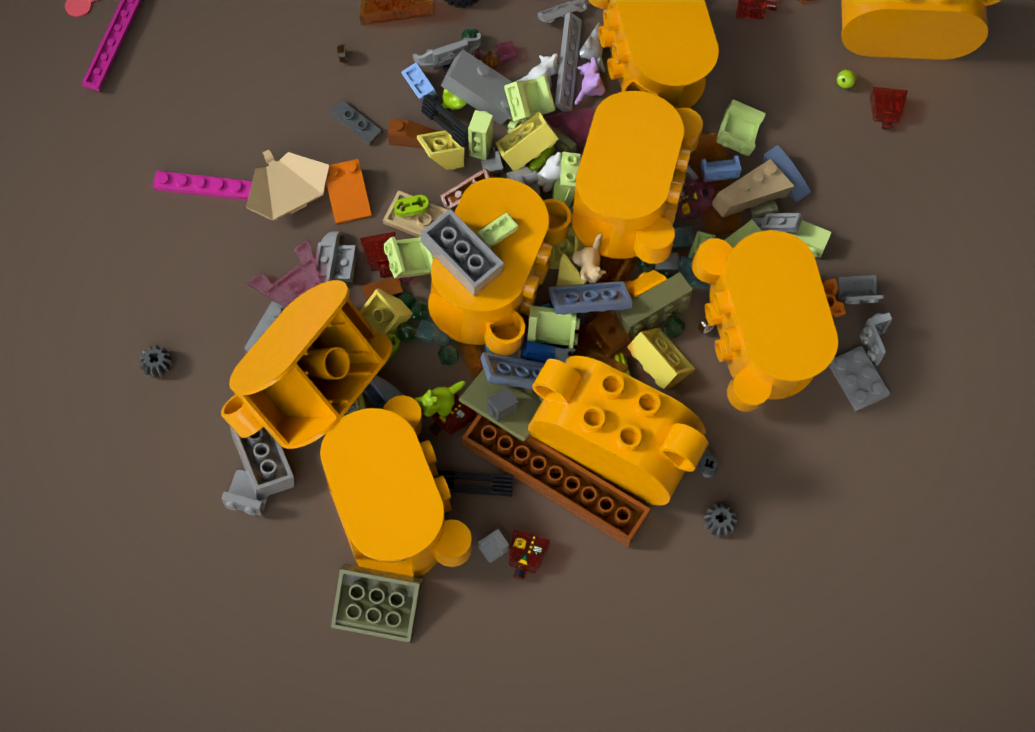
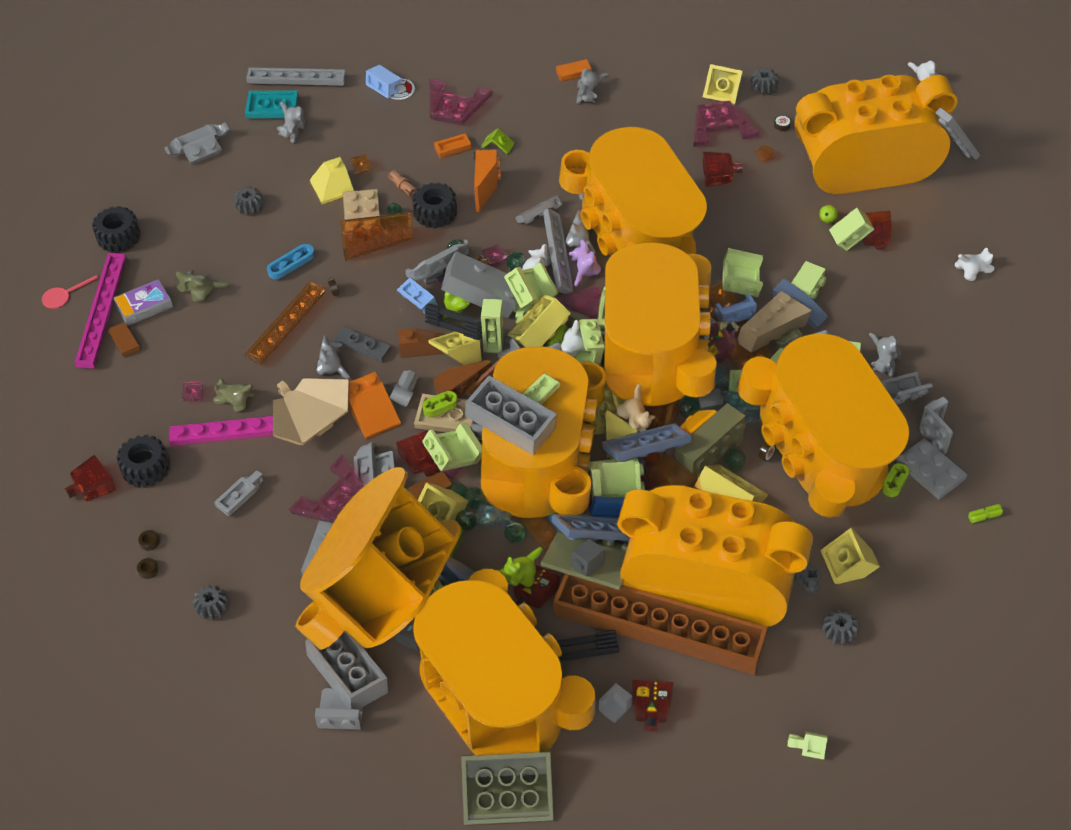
camera: 10 degrees left, 15 degrees down
(72, 211) = (90, 480): none -> clear red torso
(107, 312) = (147, 568): none -> dark brown tile
(113, 284) = (148, 540): none -> dark brown tile
(122, 190) = (143, 473): none -> black tyre
(133, 66) = (123, 339): none -> dark orange tile
(158, 30) = (143, 302): none -> piece
(185, 137) = (192, 391): none -> clear pink plate
(205, 255) = (239, 493): none -> light grey hinge
(215, 24) = (198, 285): none -> olive animal
(222, 150) = (234, 394): none -> olive animal
(287, 83) = (284, 323): none -> clear orange plate
(300, 16) = (290, 261): none -> dark azure plate
(319, 134) = (329, 360): none -> light grey animal
(380, 184) = (403, 390): none -> light grey piece
(437, 182) = (460, 378): none -> dark orange slope
(524, 64) = (515, 260): none -> clear green piece
(658, 628) = (812, 745): none -> yellowish green plate
(750, 453) = (849, 558): none -> light yellow slope
(803, 150) = (810, 279): none -> yellowish green brick
(824, 385) = (892, 478): none -> lime beam
(856, 244) = (887, 351): none -> light grey animal
(862, 103) = (851, 229): none -> yellowish green brick
(898, 436) = (989, 512): none -> lime piece
(974, 167) = (975, 263): none -> white animal
(998, 23) = (957, 134): none -> light grey plate

